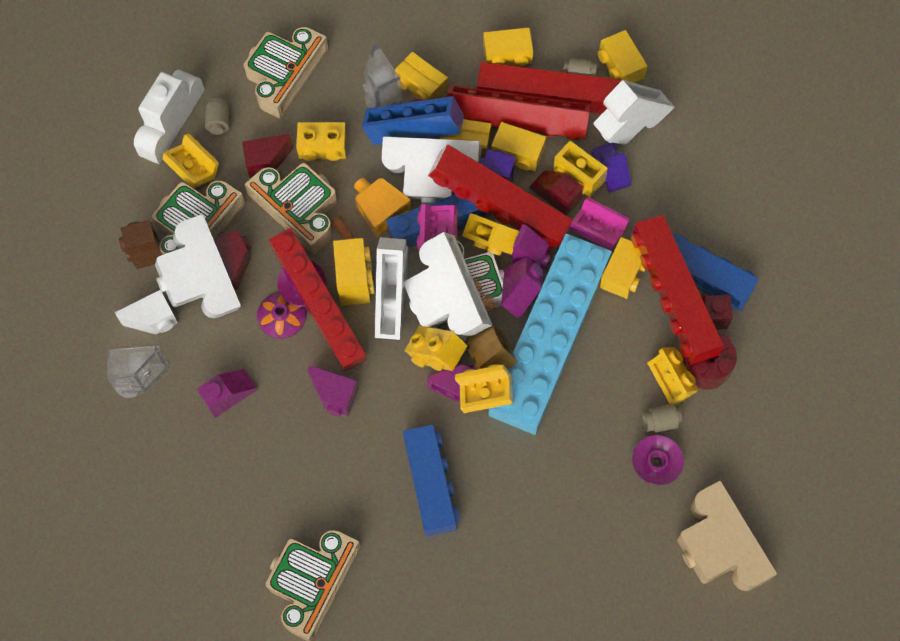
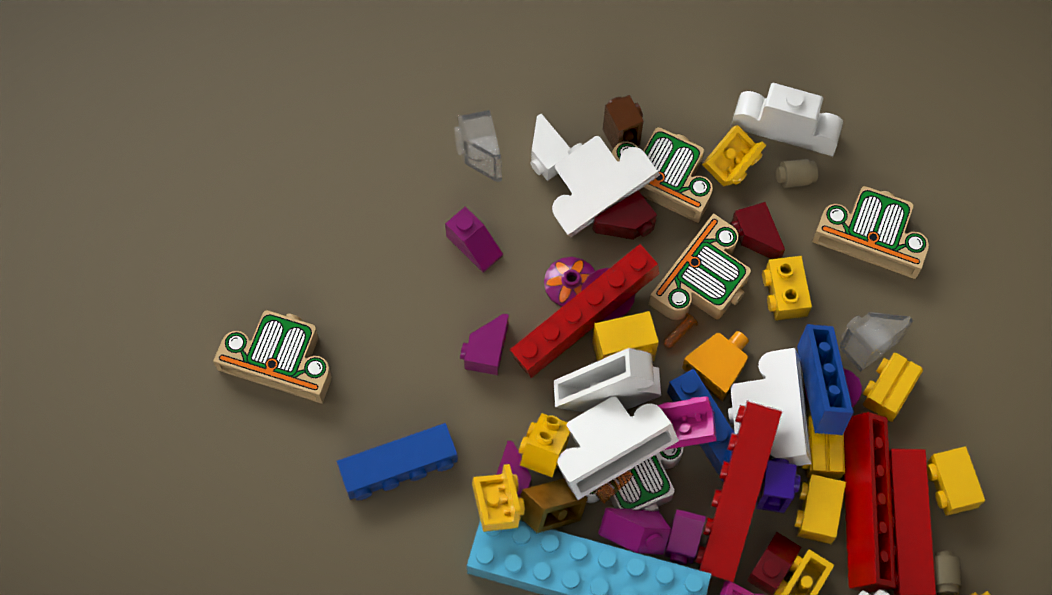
camera: 80 degrees right, 0 degrees up
(490, 235) = (694, 486): yellow brick -> none

